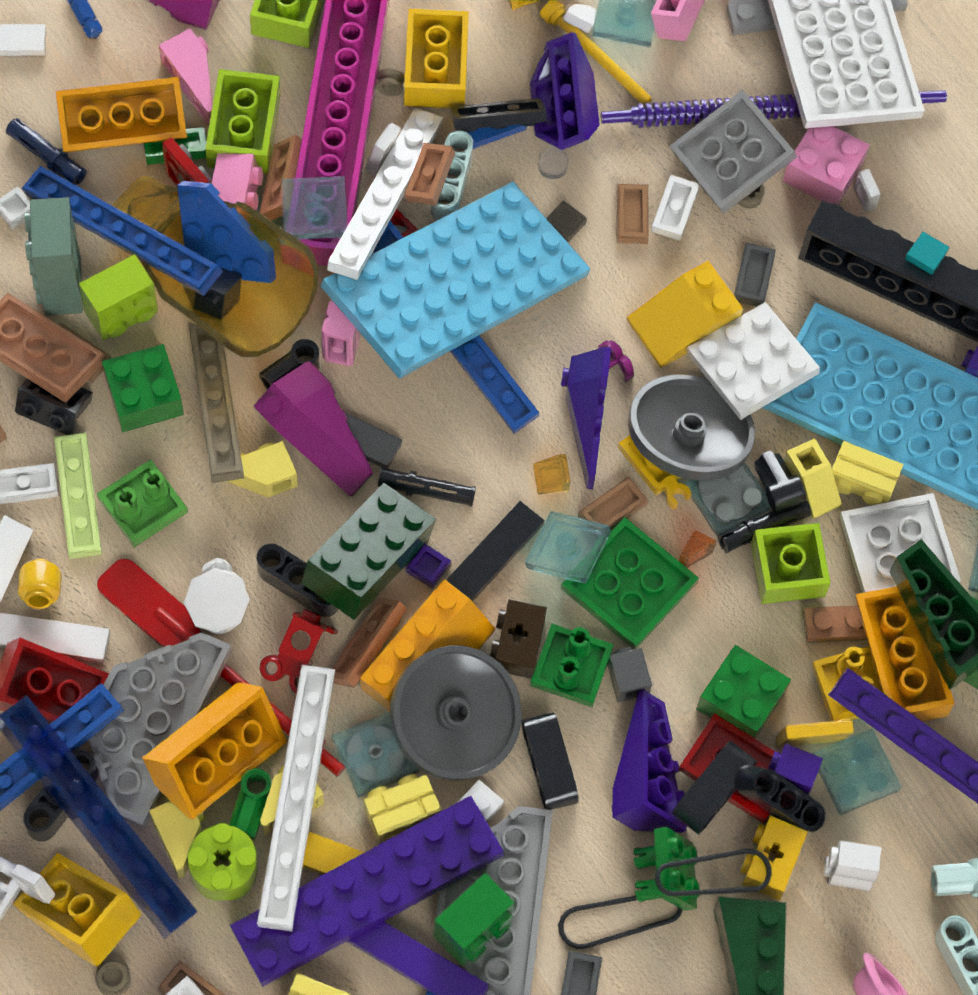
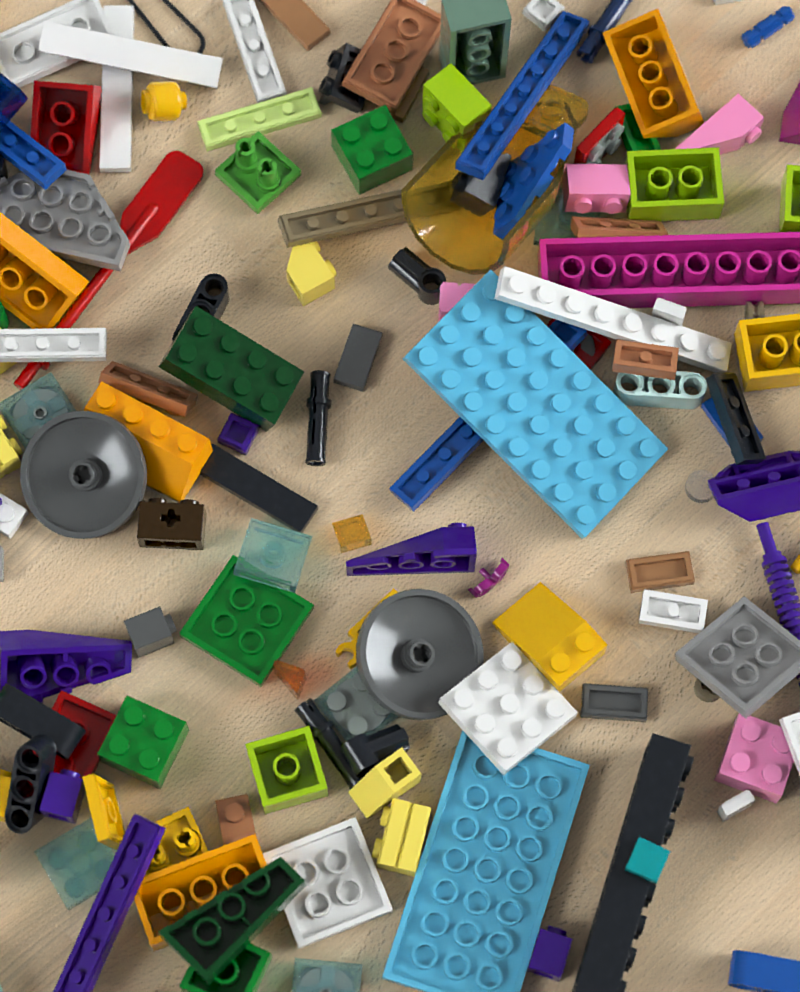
camera: 85 degrees right, 5 degrees up
(217, 598) = (169, 249): white piece -> none
(289, 658) = (151, 330): red piece -> none
(310, 418) = (364, 293): magenta wedge -> none
(314, 207) = (578, 255): clear light blue plate -> none
(550, 761) = (52, 570): black beam -> none
(566, 220) = (636, 507): clear smoke tile -> none
(572, 664) = (153, 577): green plate -> none
(615, 504) = (328, 596): medium nougat tile -> none

